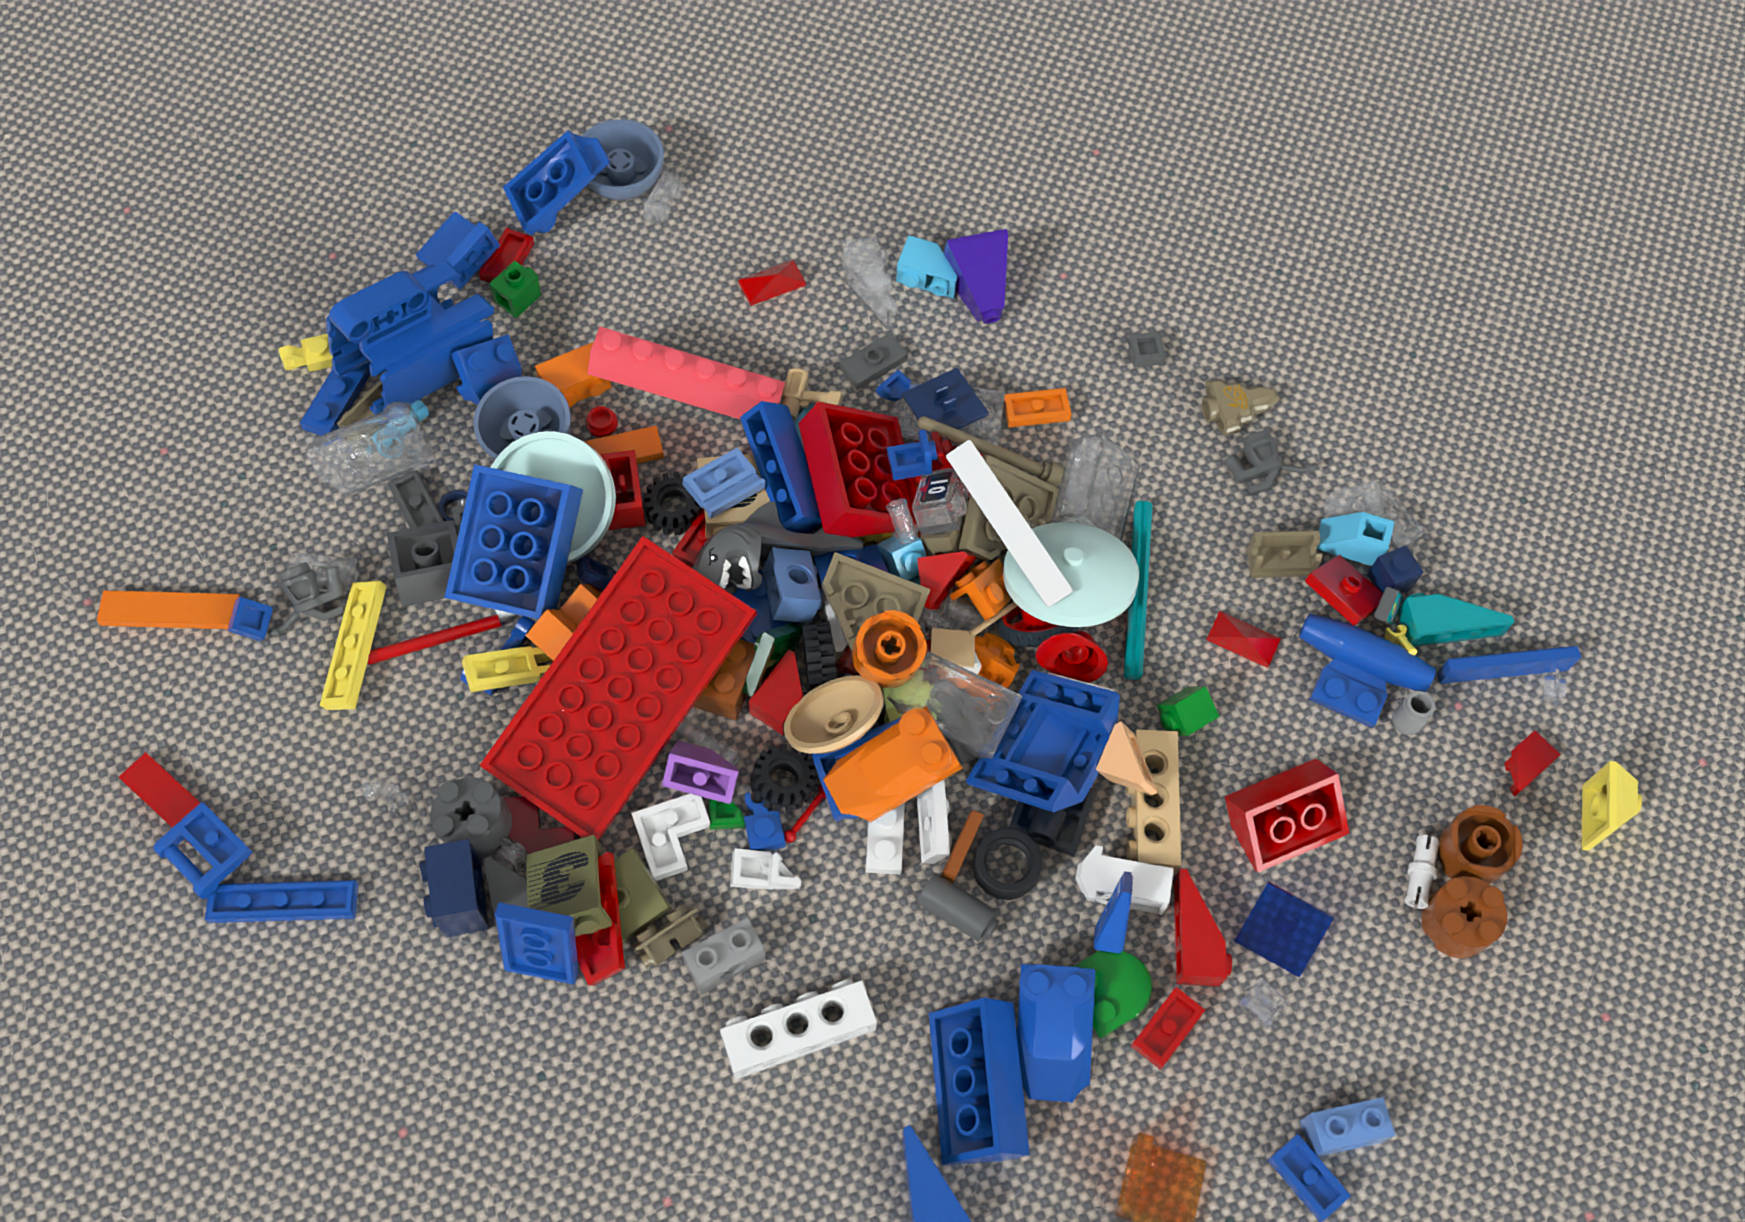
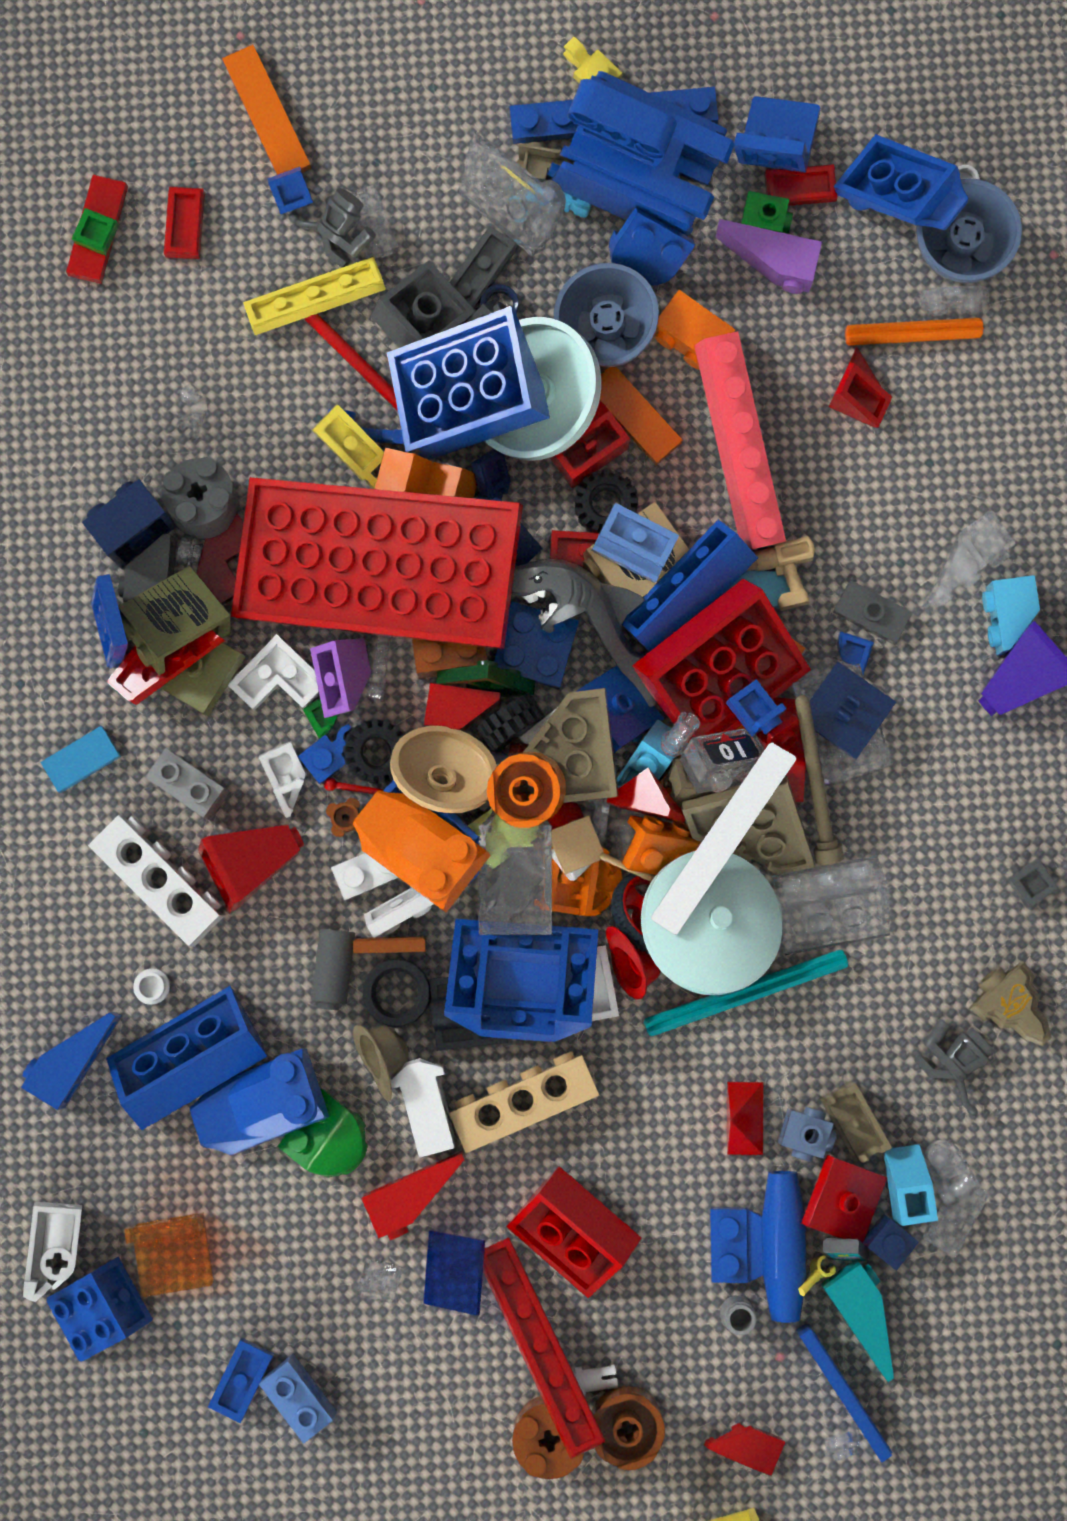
camera: 70 degrees right, 20 degrees up
(171, 797) = (95, 231): none -> green tile
(211, 840) = (72, 290): blue plate -> none
(215, 722) = (184, 222): none -> red tile
(282, 901) = (57, 381): blue tile -> none
(550, 295) = (778, 256): none -> medium lavender slope
(601, 421) = (660, 385): red plate -> none
(645, 1050) = (80, 759): none -> dark azure tile
(656, 942) = (173, 716): dark tan hinge -> none
(669, 236) = (914, 331): none -> orange axle
(693, 291) = (861, 393): none -> red slope
(771, 282) = (914, 462): red slope -> none
(792, 585) = (548, 664): medium blue brick -> none
(822, 826) = (336, 812): none -> dark orange plate
(824, 938) = (247, 860): none -> red slope
(894, 1085) = (151, 986): none -> white plate
(1037, 407) = (901, 802): orange plate -> none
(1060, 901) = (381, 1053): none -> dark tan piece
(1112, 924) = (381, 1113): blue slope -> none
(1124, 762) = (538, 1060): light nougat slope -> none
(1168, 1028) = (314, 1203): red plate -> none
(1187, 710) = (628, 1095): green brick -> none
(1278, 592) = (794, 1129): none -> sand blue brick
(1390, 880) = (541, 1349): none -> red tile

